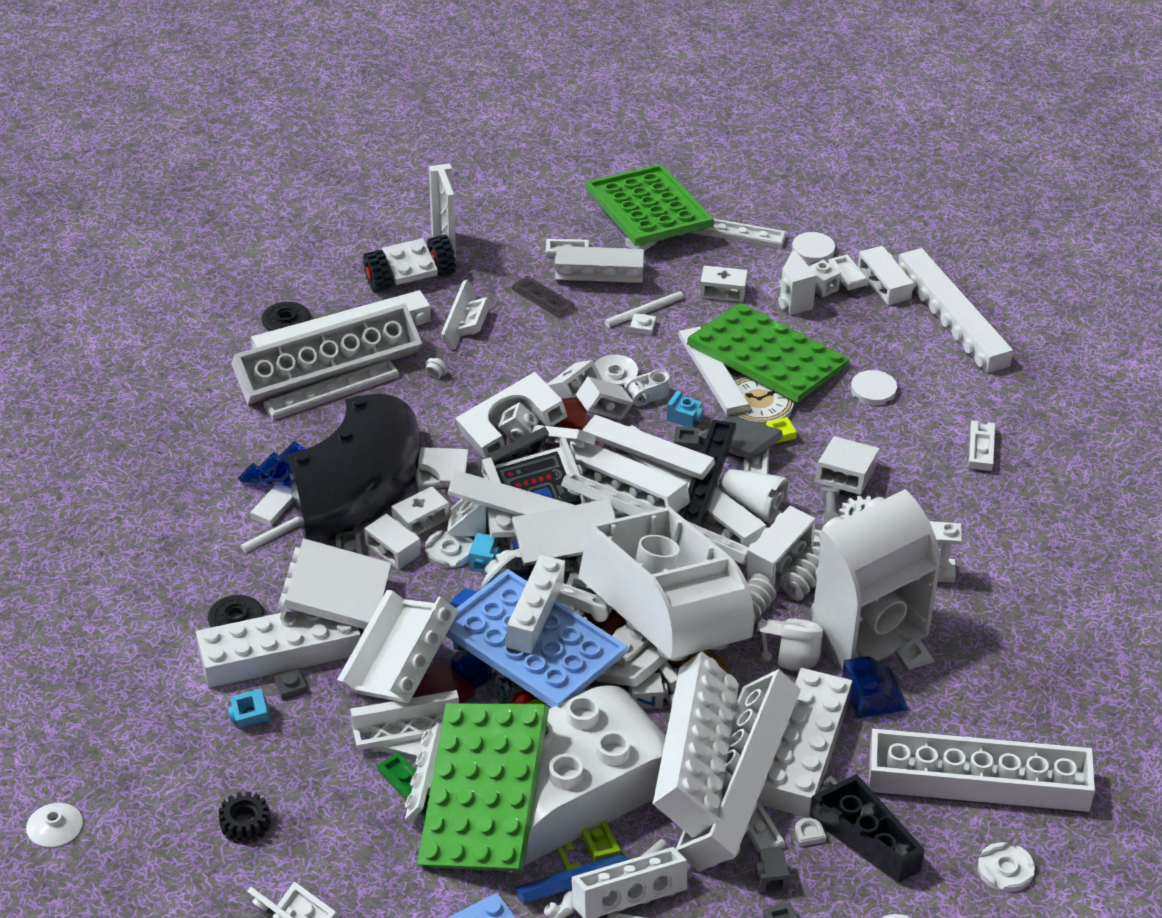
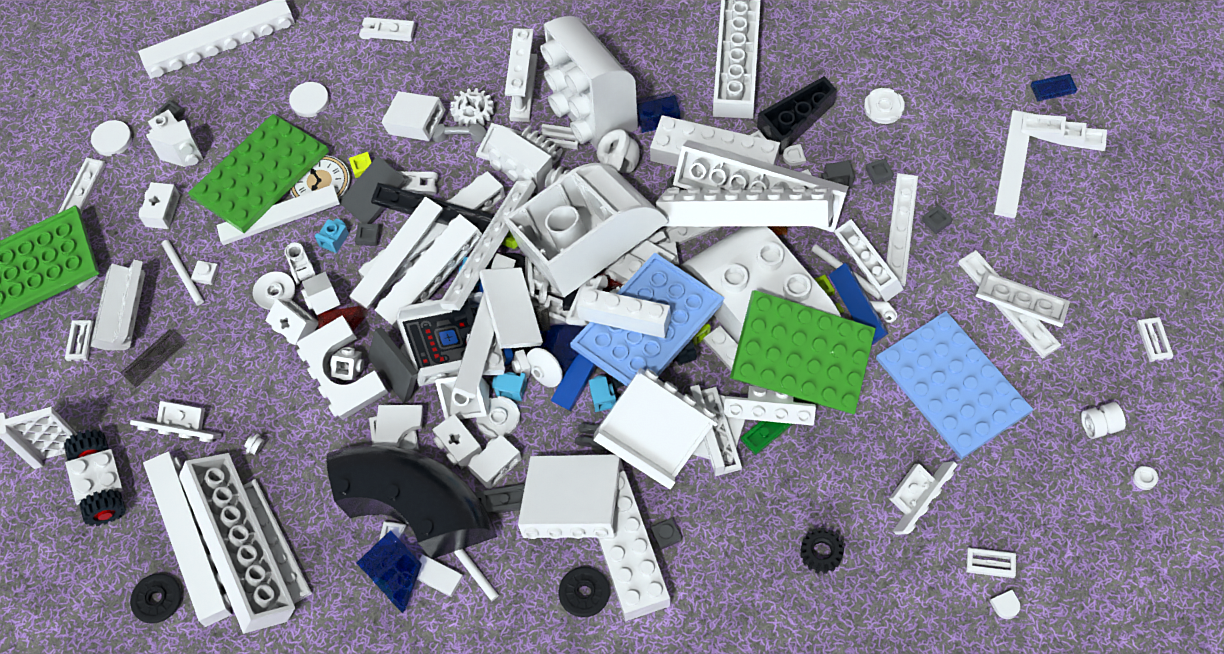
camera: 85 degrees left, 20 degrees up
(247, 701) = (708, 554): medium azure brick -> none
(573, 436) = (375, 320): white plate -> none
(756, 491) = (449, 175): white cone -> none
(850, 275) = (154, 108): white tile -> none
(885, 275) = (164, 83): white brick -> none
(1005, 875) = (814, 42): white tile -> none

